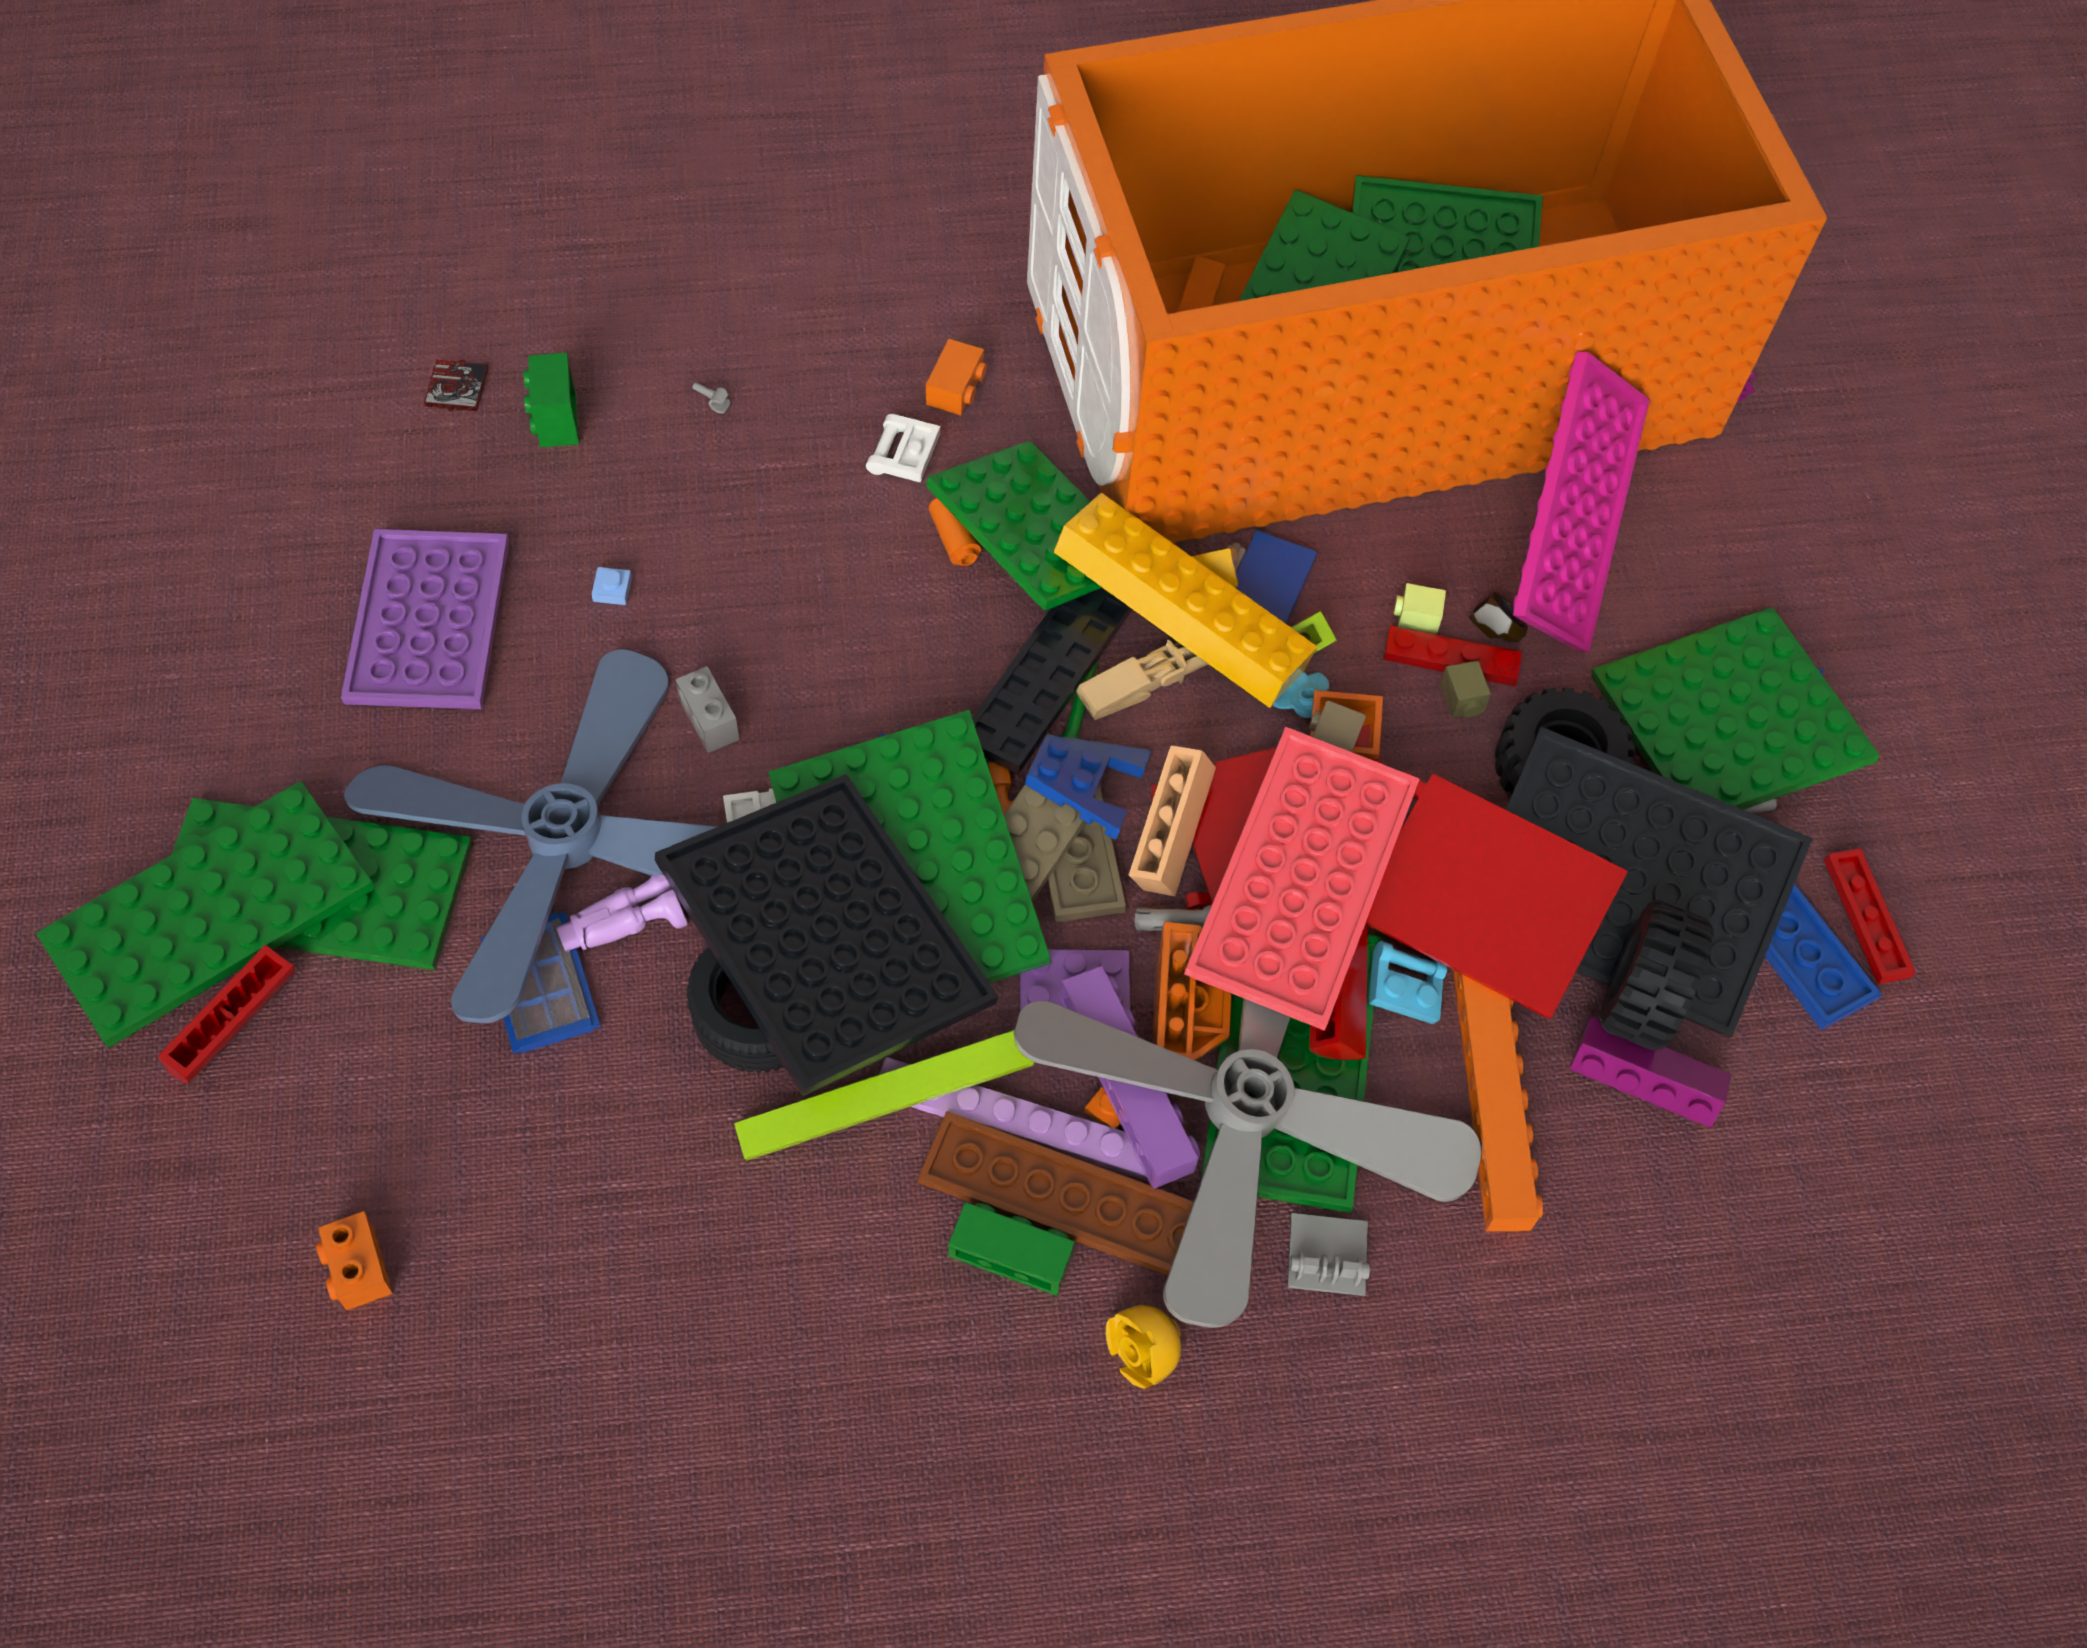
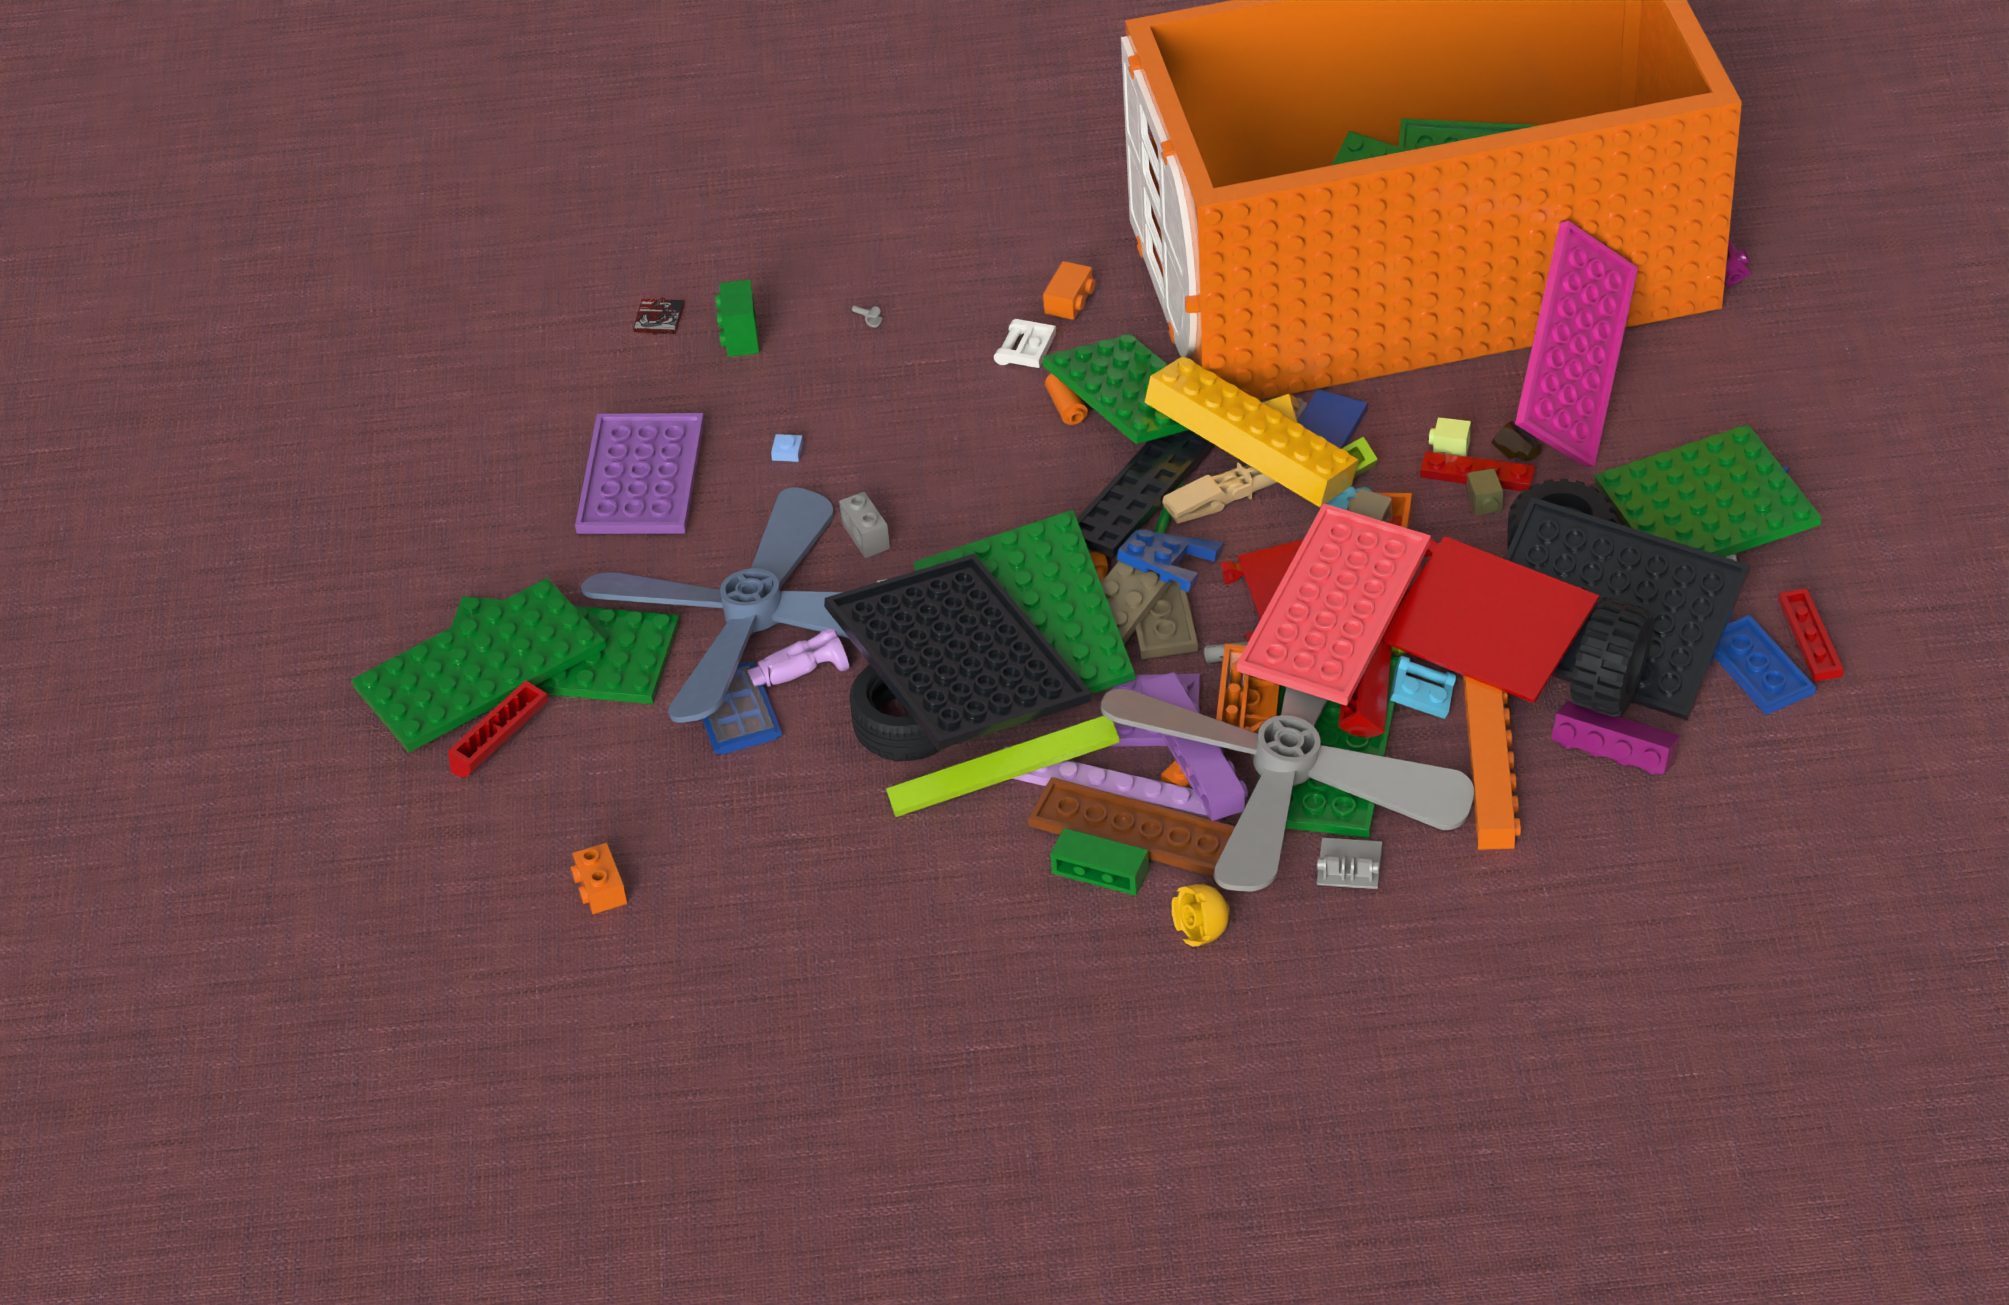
camera: 10 degrees right, 15 degrees down
(1172, 820) = (1235, 581): light nougat brick -> none

